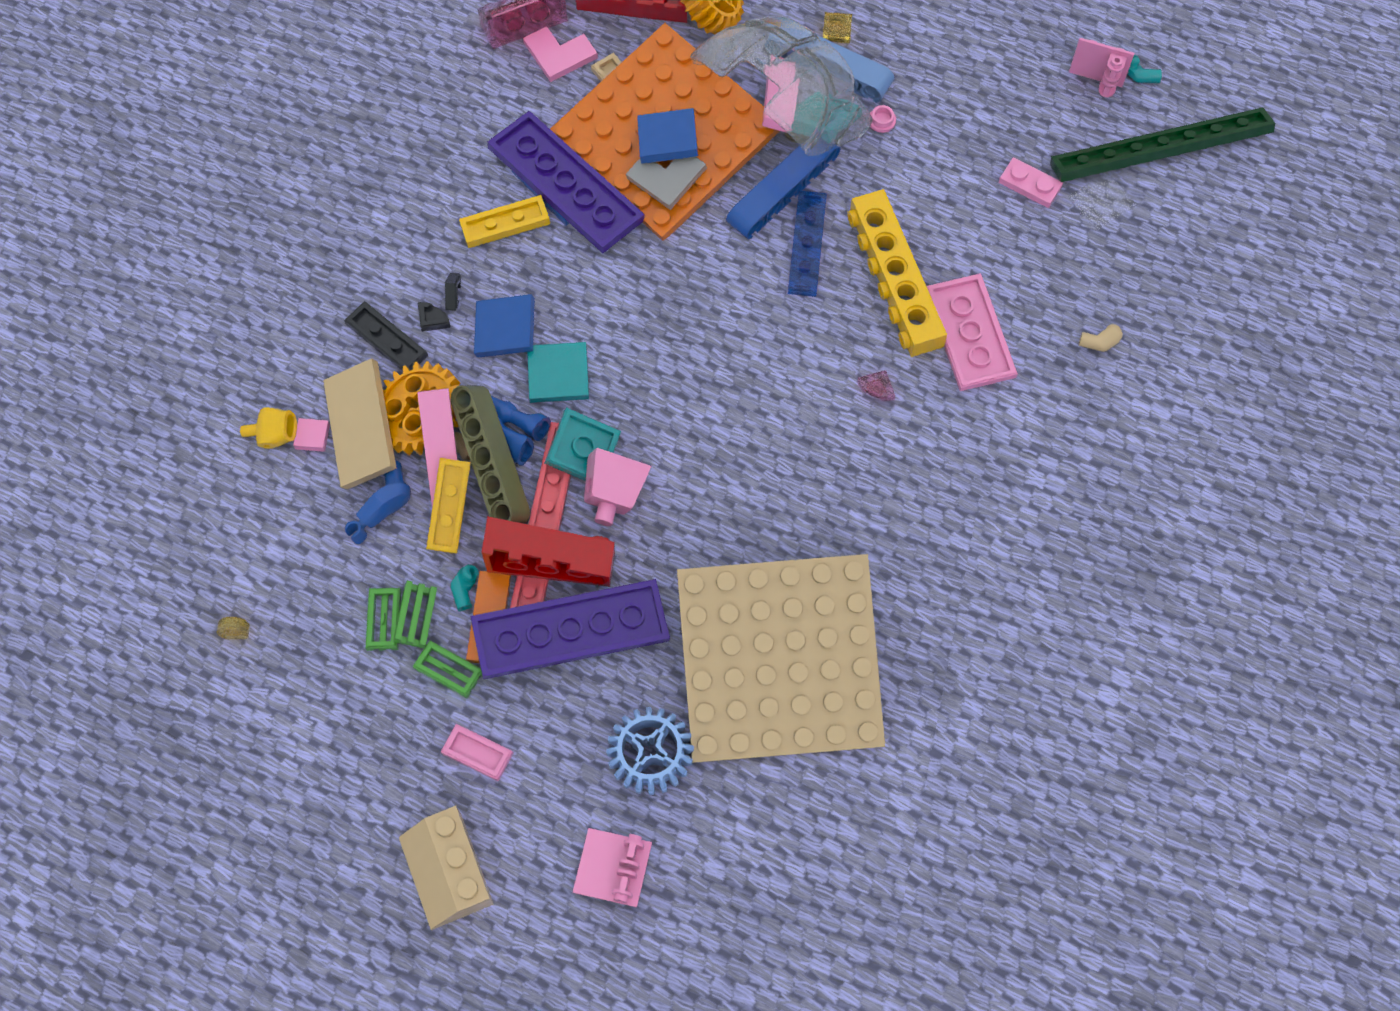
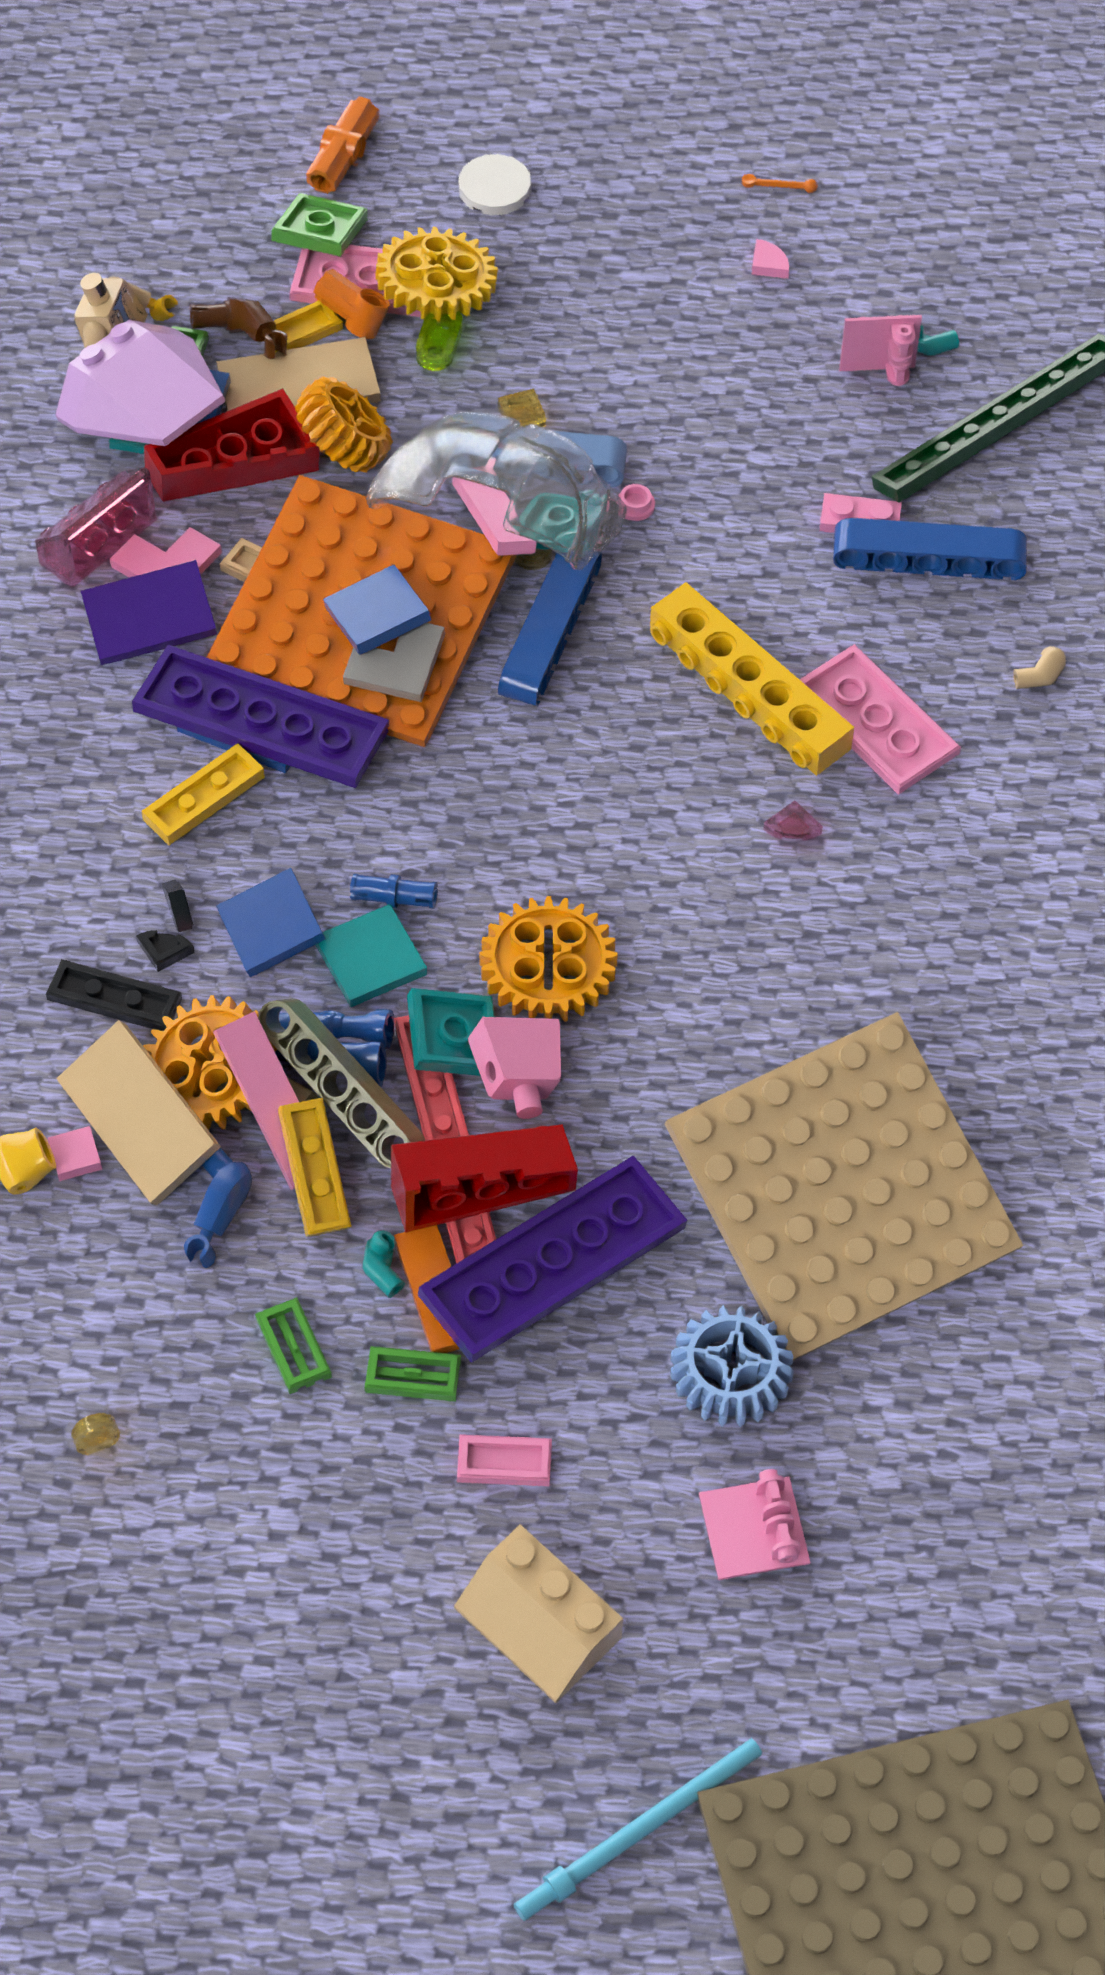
camera: 25 degrees left, 10 degrees down
(420, 590) = (350, 1315): bright green tile -> none
(529, 83) = (148, 612): none -> dark purple tile
(592, 334) = (393, 891): none -> blue pin
(643, 411) = (507, 959): none -> light orange gear
(807, 243) = (615, 685): clear blue tile -> none
(1067, 223) = (930, 548): none -> blue beam

